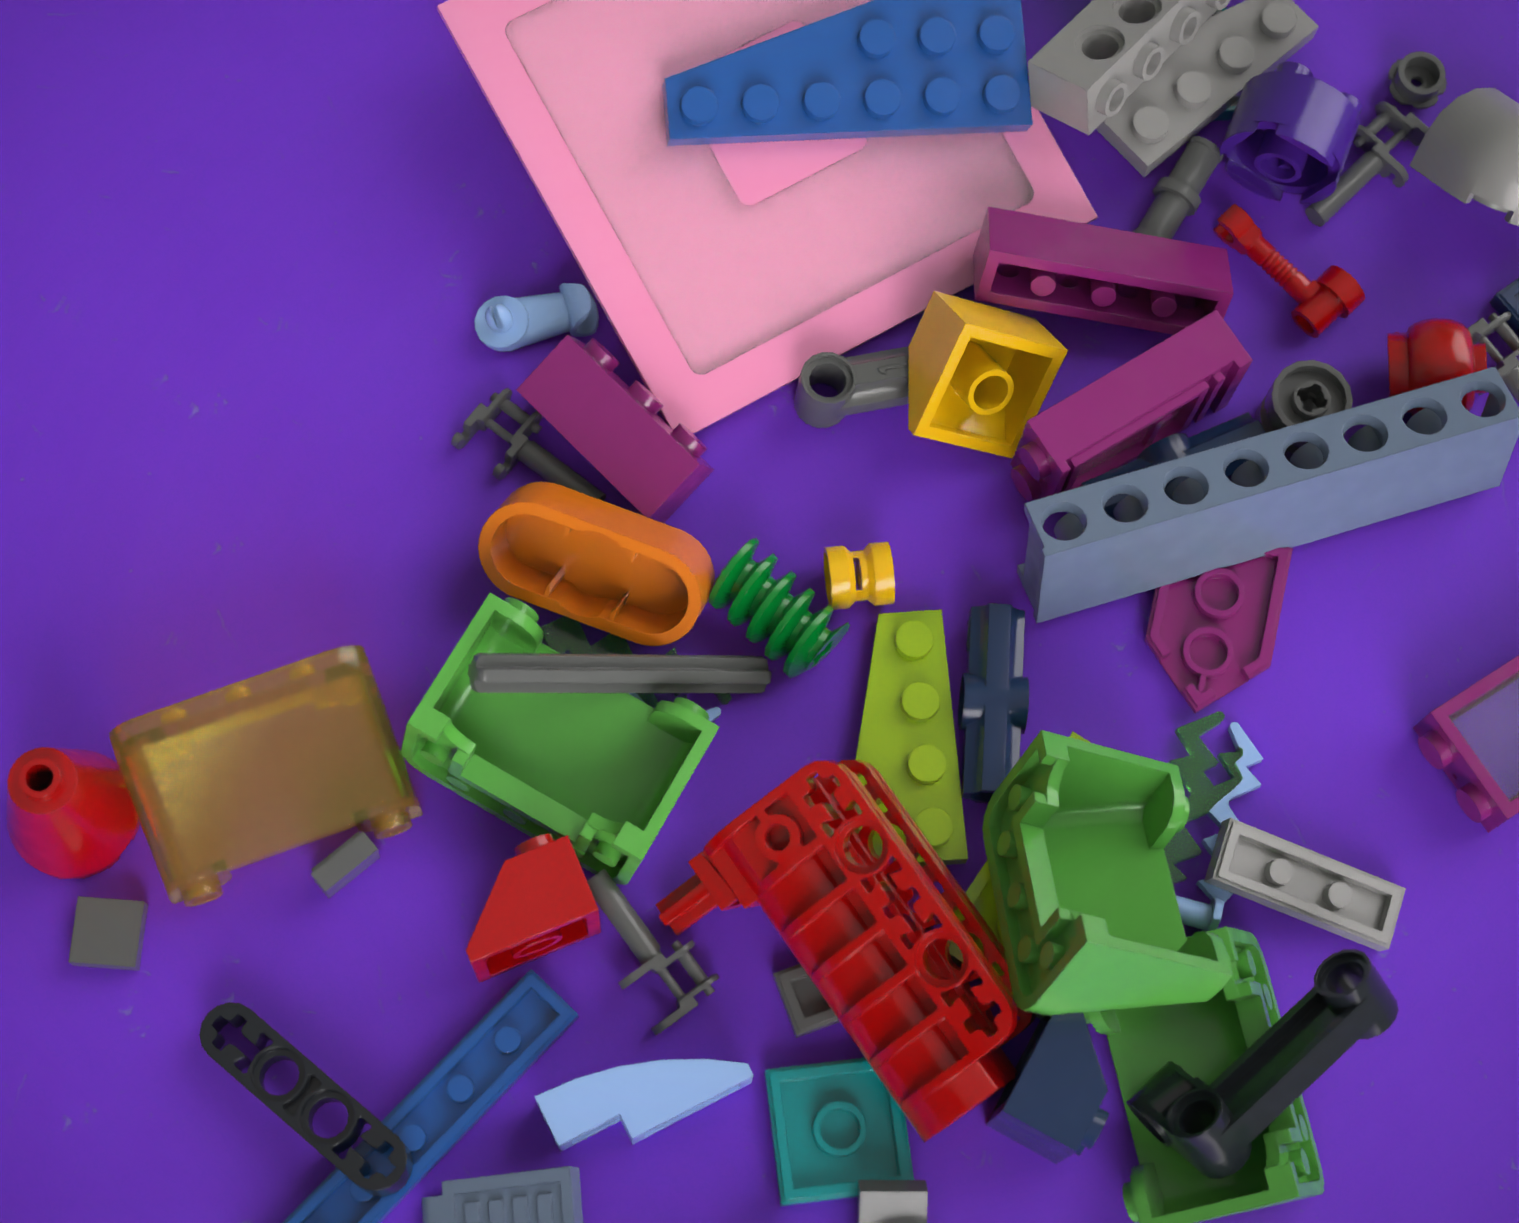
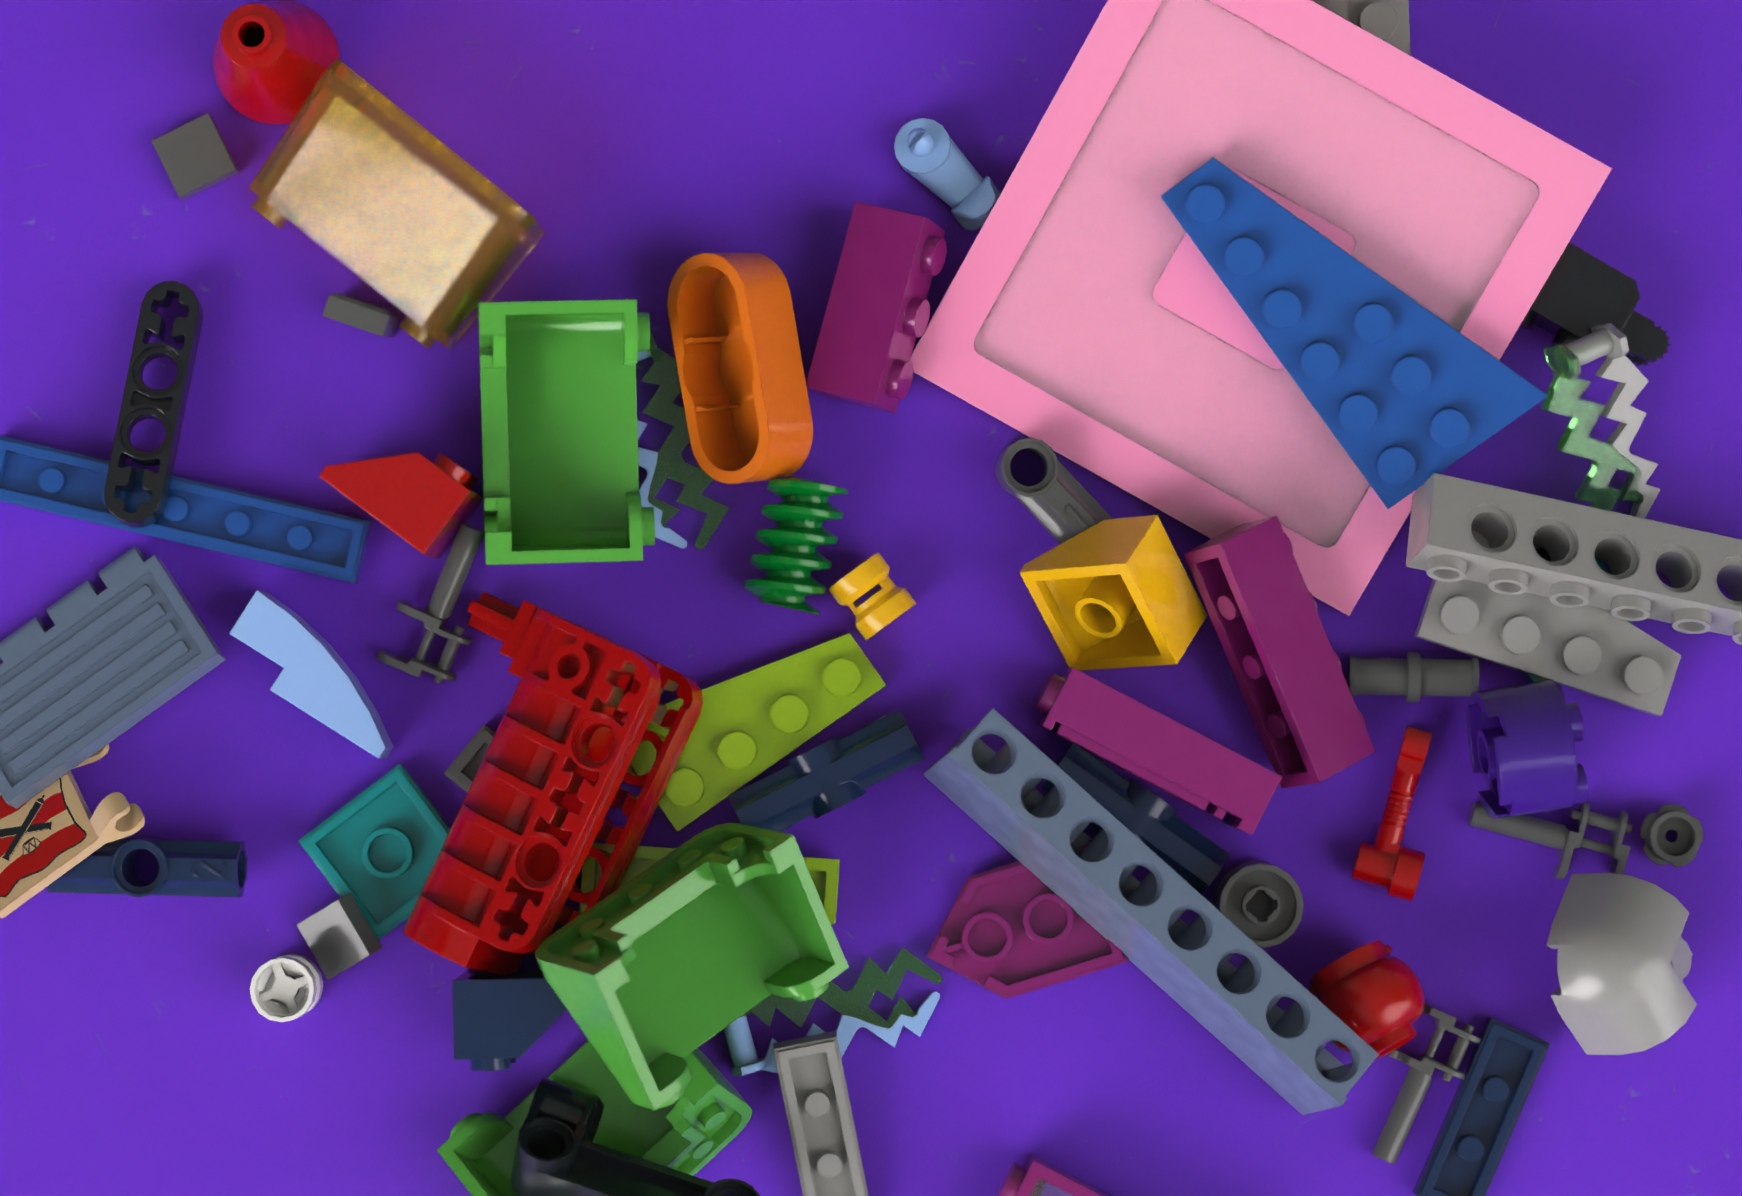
camera: 65 degrees right, 15 degrees up
(520, 446) = (816, 244): dark grey piece -> none
(617, 673) = (646, 447): dark grey axle -> none

